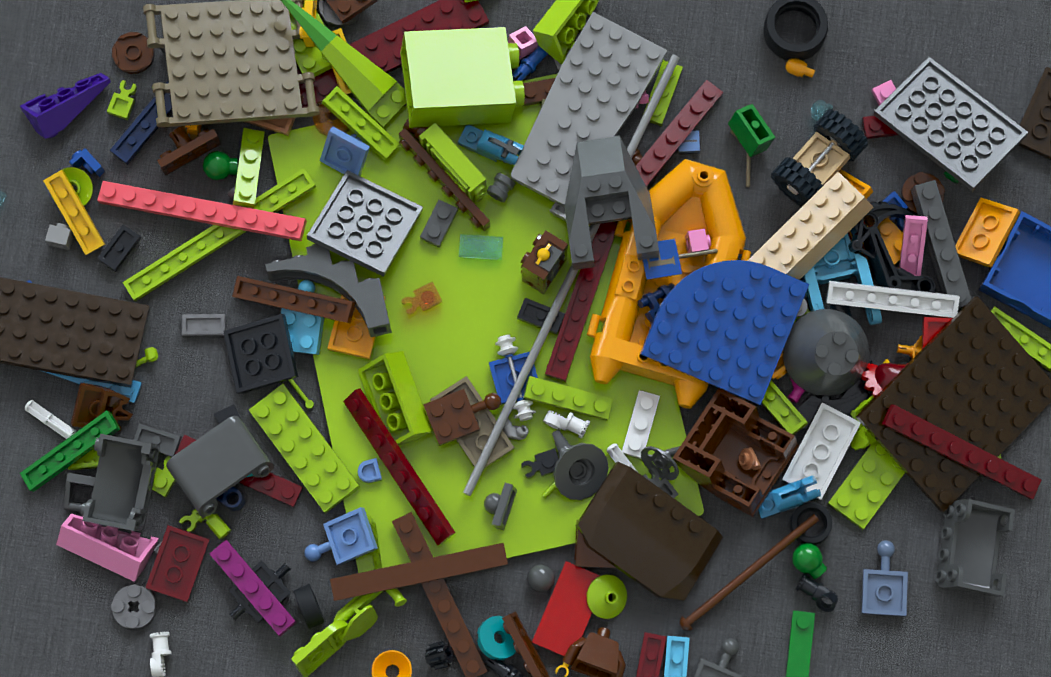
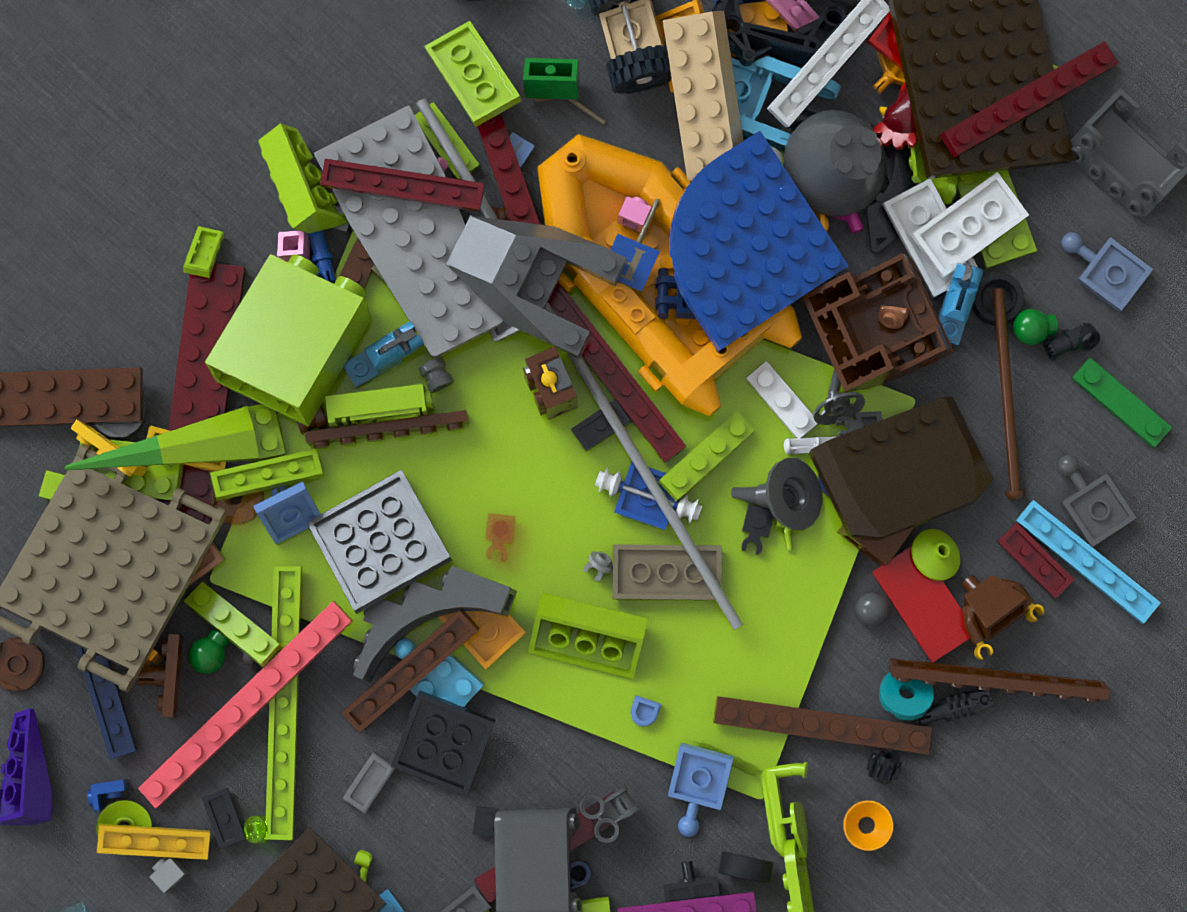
camera: 55 degrees left, 5 degrees up
(122, 104) = (66, 713): lime plate -> none
(125, 272) = (256, 829): none -> clear neon green plate
(287, 490) = (610, 811): none -> dark grey piece
(304, 448) = (573, 763): lime plate -> none
(308, 403) = (528, 727): lime hinge -> none
(399, 466) = (661, 677): dark red plate -> none
(418, 571) = (787, 730): reddish brown tile -> none
(439, 223) = (429, 464): dark grey plate -> none
(449, 376) = (601, 562): none -> light grey plate
(454, 416) = (647, 585): reddish brown plate -> none
(481, 247) = (484, 438): clear light blue plate -> none
(500, 505) = (771, 600): dark grey tile -> none
(515, 432) = (704, 533): light grey arm -> none
(571, 423) = (734, 471): white connector -> none
(609, 80) = (402, 185): none -> dark red plate
(718, 78) = (472, 73): none -> lime plate
(783, 410) = (866, 246): lime plate -> none
(847, 469) = (969, 225): none -> white plate

